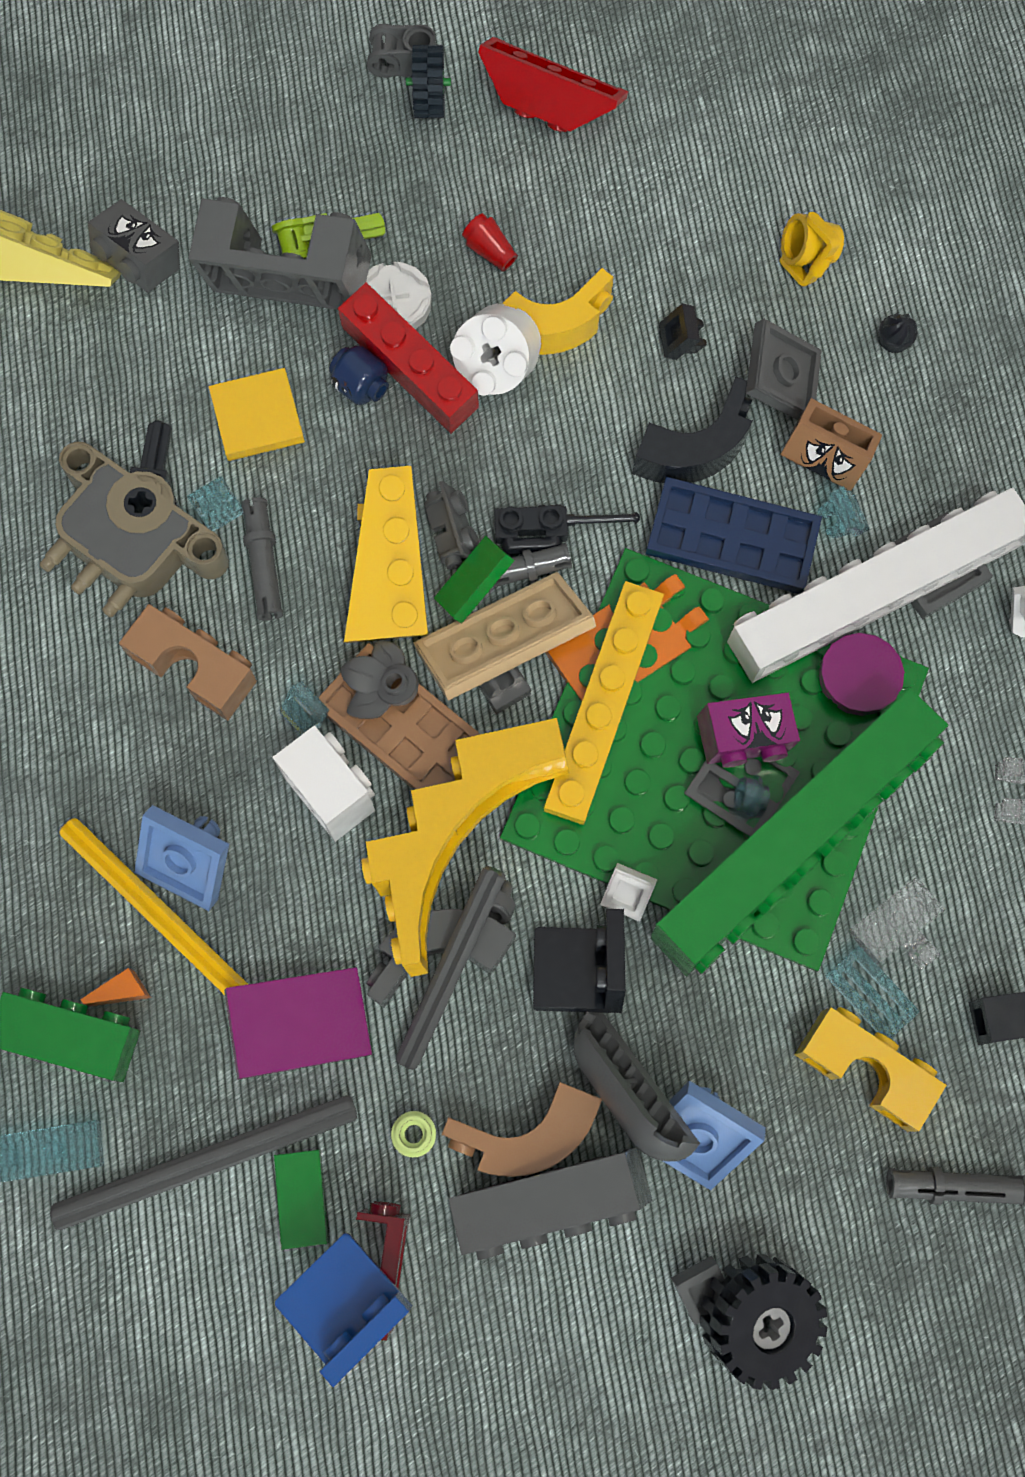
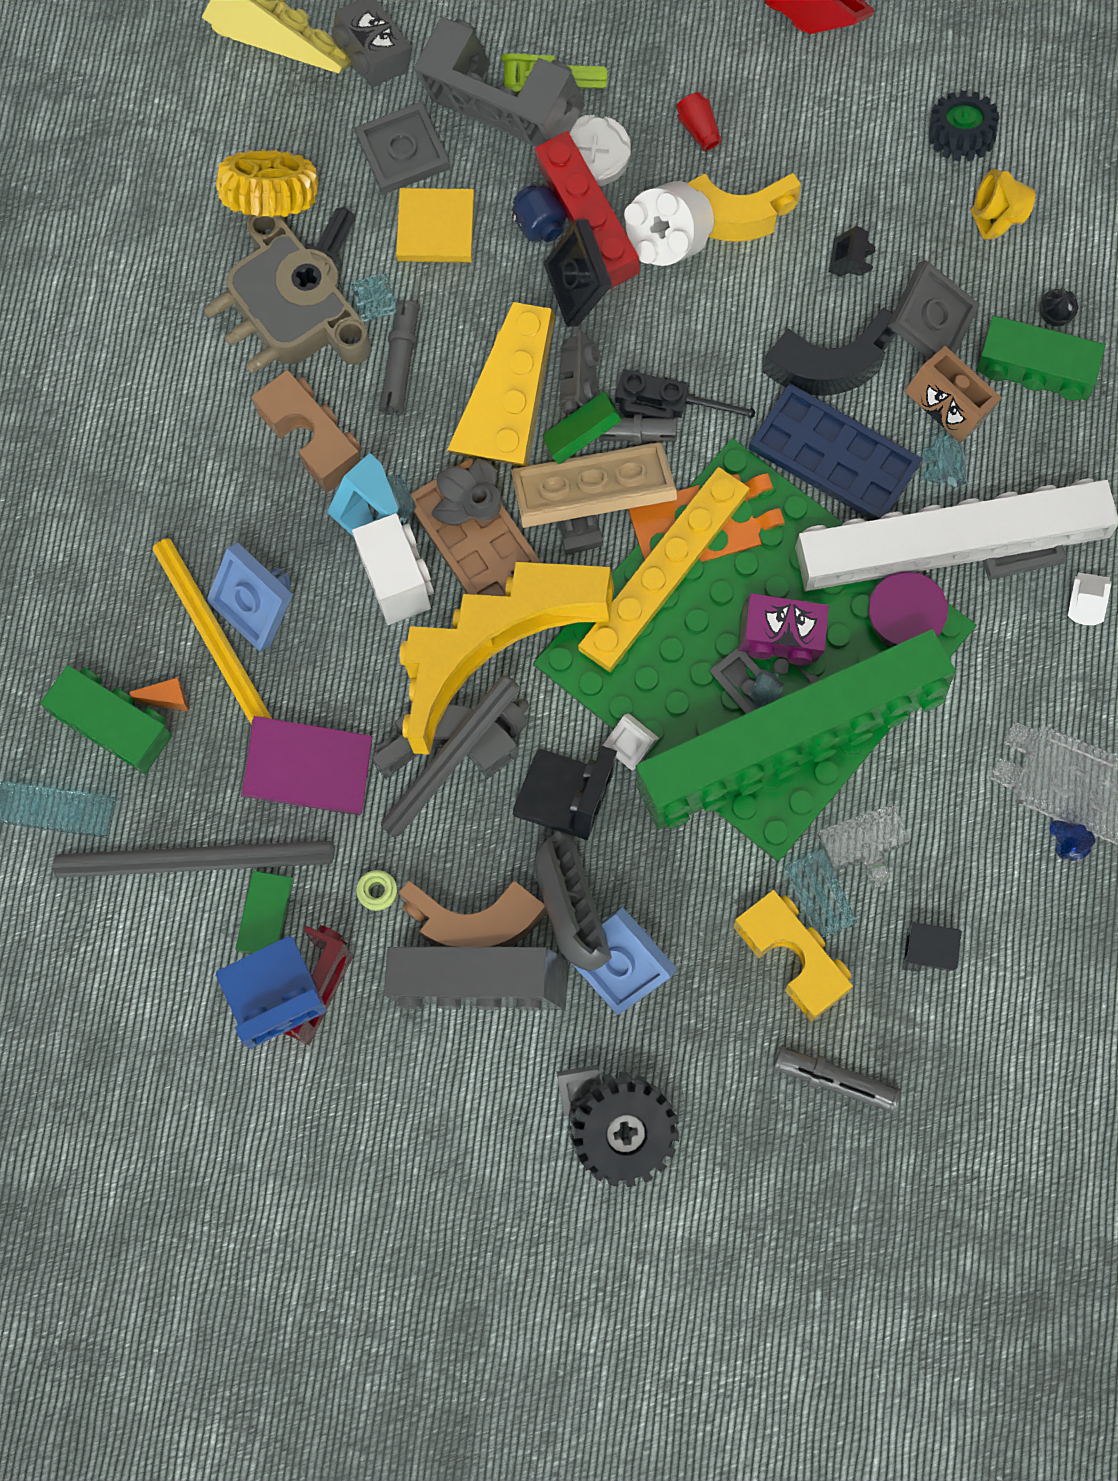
camera: 25 degrees right, 0 degrees up
(68, 416) = (267, 183): none -> yellow gear
(198, 345) = (402, 148): none -> dark grey tile
(269, 702) = (362, 484): none -> medium azure tile
(420, 423) = (577, 273): none -> black tile
(748, 181) = (963, 126): none -> black wheel
(900, 386) = (1040, 358): none -> green brick

